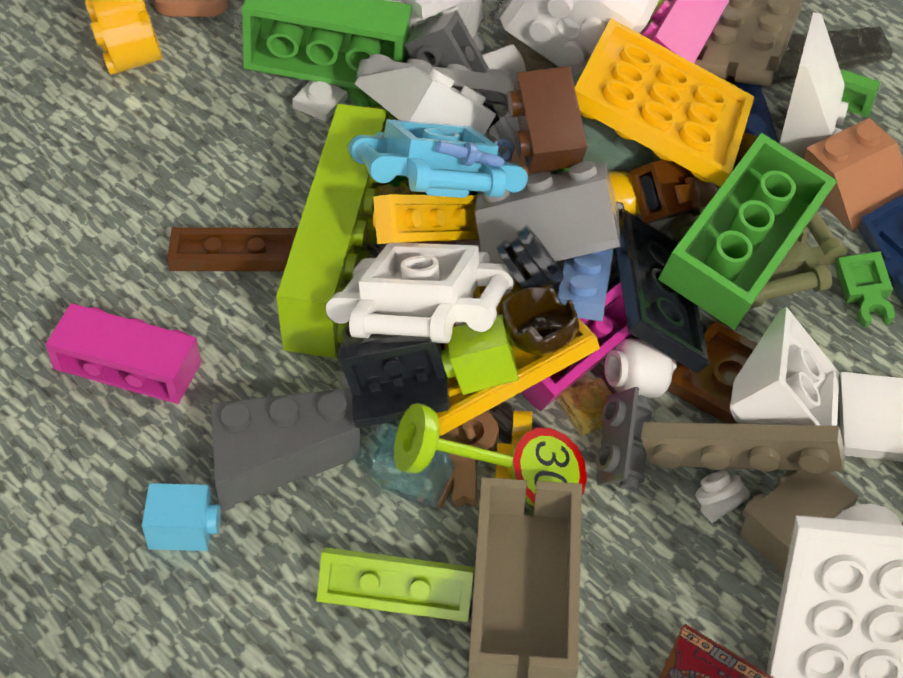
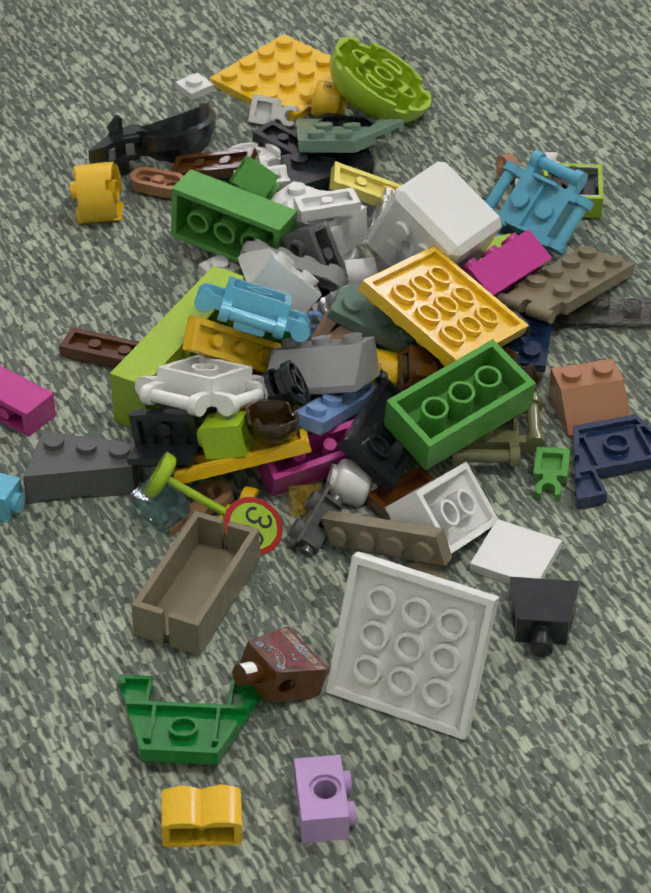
camera: 20 degrees right, 10 degrees down
(395, 584) = (108, 562): lime plate -> none
(469, 154) = (266, 304): medium blue hand -> none
(547, 119) = (339, 297): reddish brown brick -> none
(816, 93) = (577, 326): white slope -> none
(859, 92) = (624, 345): bright green plate -> none

